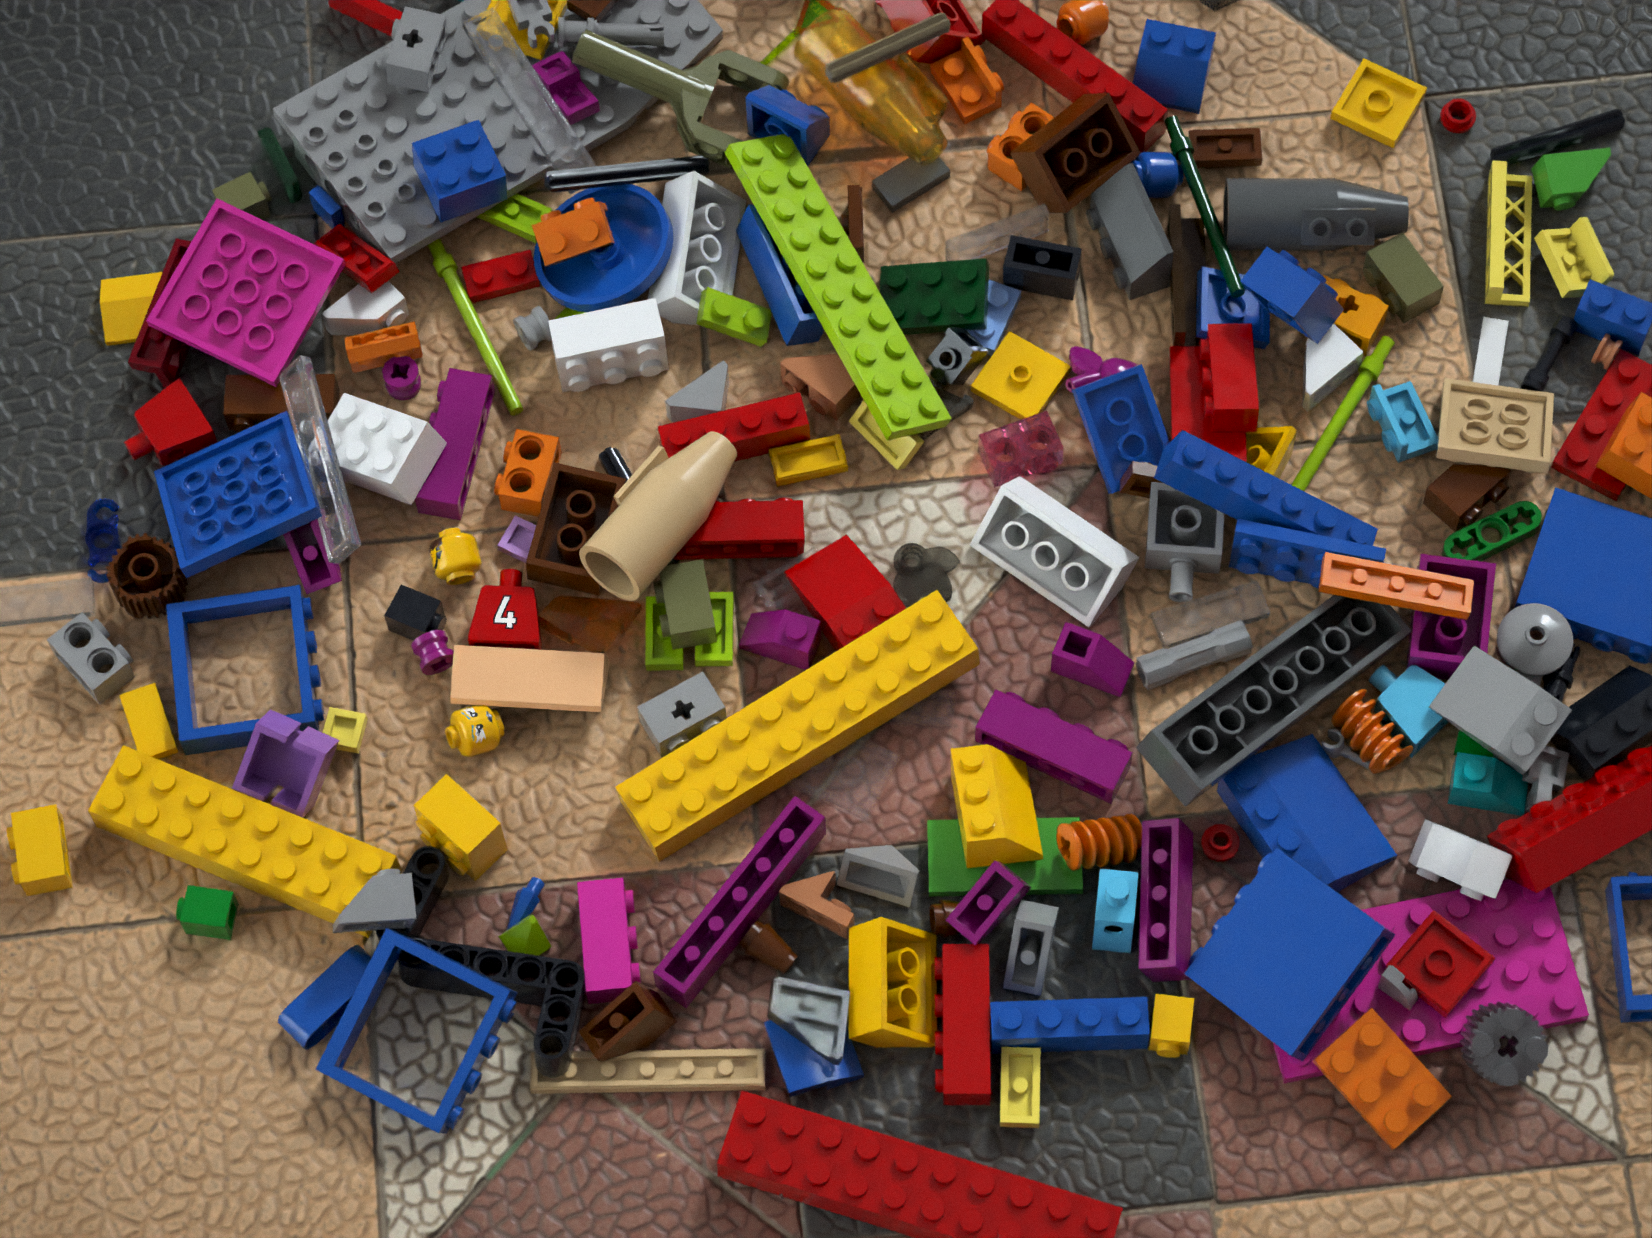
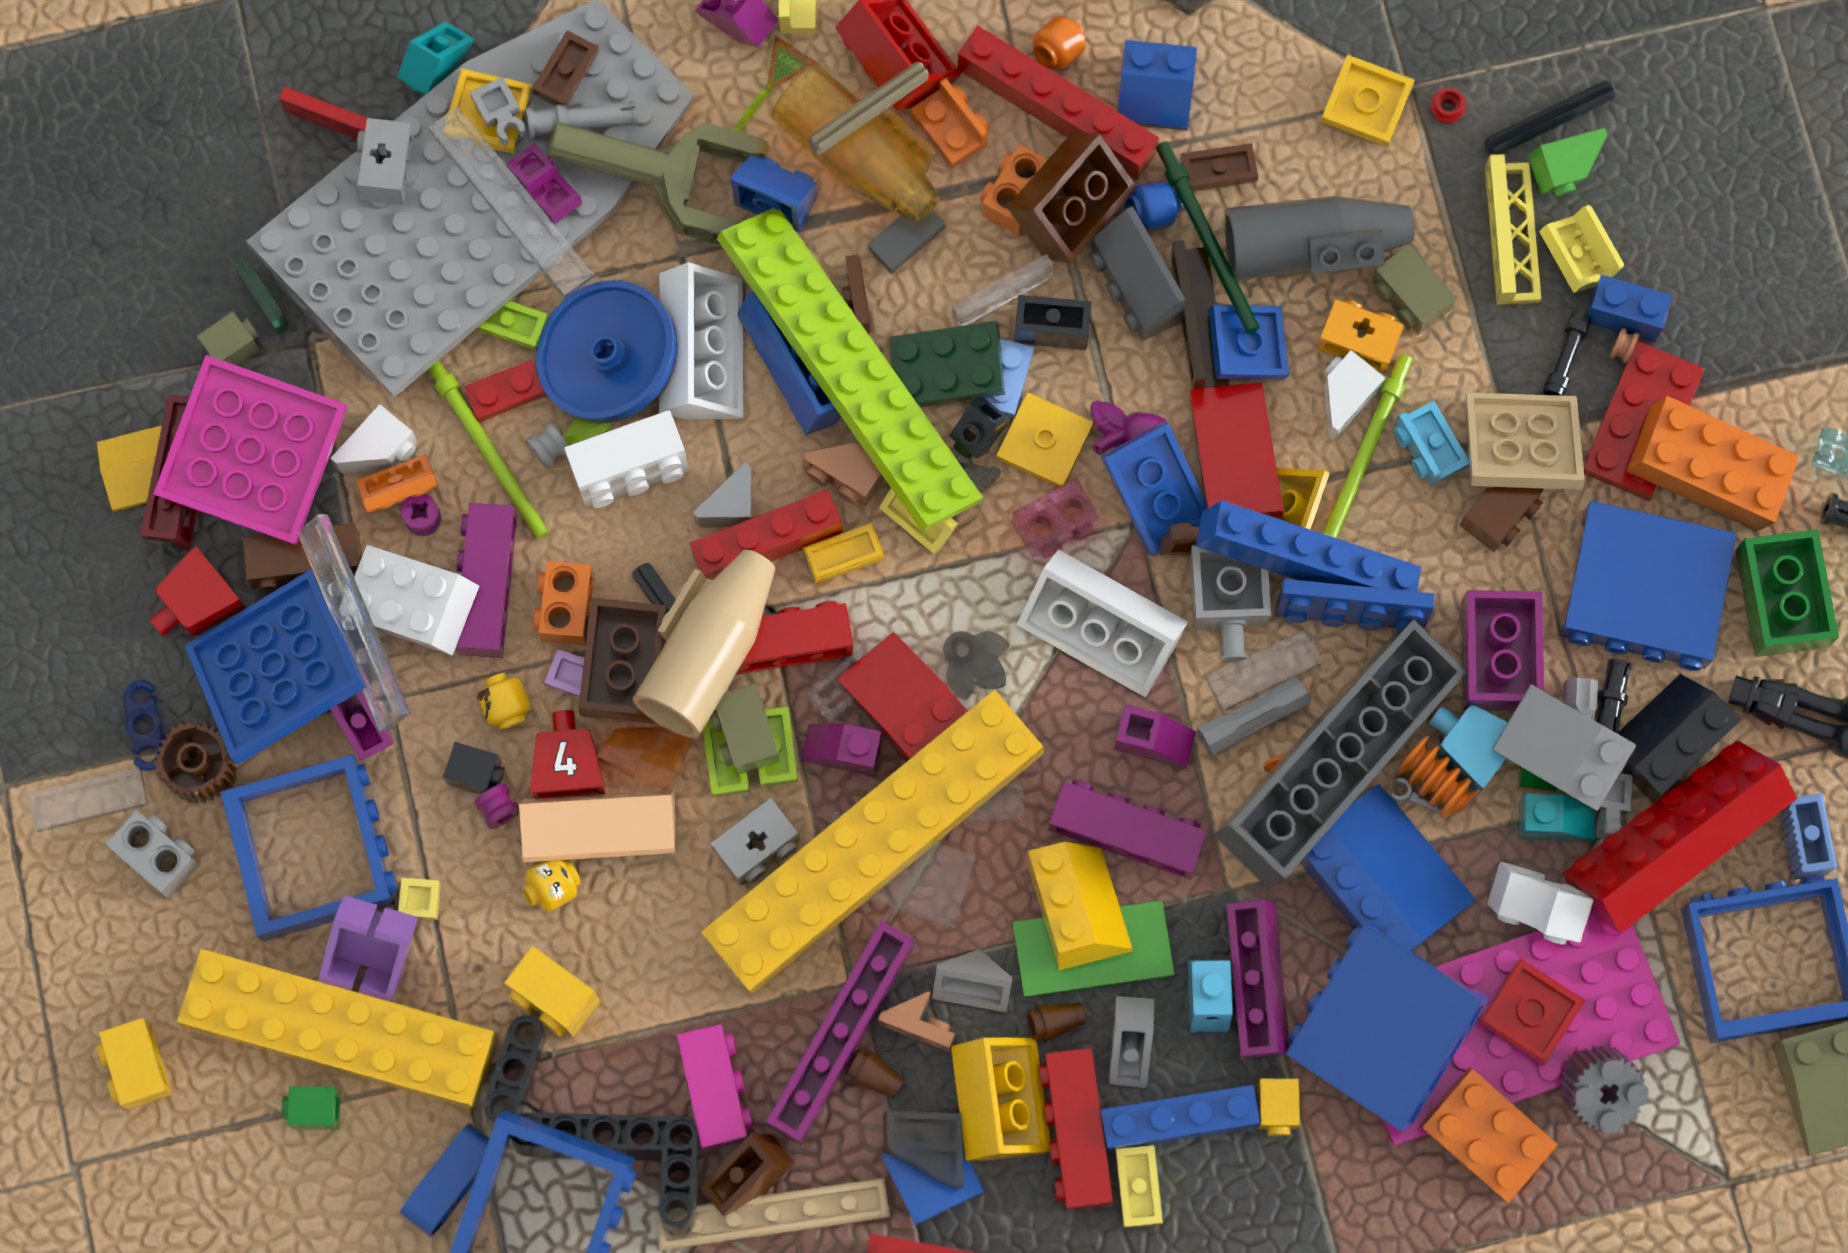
camera: 10 degrees left, 10 degrees up
(148, 722) = (221, 914): yellow tile -> none
(326, 207) = (317, 339): blue tile -> none
(362, 261) = (360, 394): red tile -> none
(380, 904) = (486, 1087): light grey slope -> none
(459, 170) = (450, 292): blue brick -> none
(525, 901) = (626, 1059): blue bar -> none
(526, 937) = (632, 1095): lime slope -> none
(574, 232) = (574, 342): orange bracket -> none
(624, 173) = (619, 270): black axle -> none
(734, 316) = (748, 410): lime plate -> none
(988, 902) = (1085, 1006): magenta slope -> none
(1099, 841) = (1186, 927): orange piece -> none
(1216, 852) = (1297, 919): red plate -> none
(1230, 378) = (1256, 422): red brick -> none
(1293, 294) = (1310, 329): blue brick -> none
(1392, 985) = (1491, 1040): light grey tile -> none
(1396, 585) = (1448, 632): orange plate -> none
(1490, 351) = (1508, 356): white sticker -> none
(1501, 521) = (1546, 530): green beam -> none
(1530, 655) = (1574, 677): light grey dish -> none

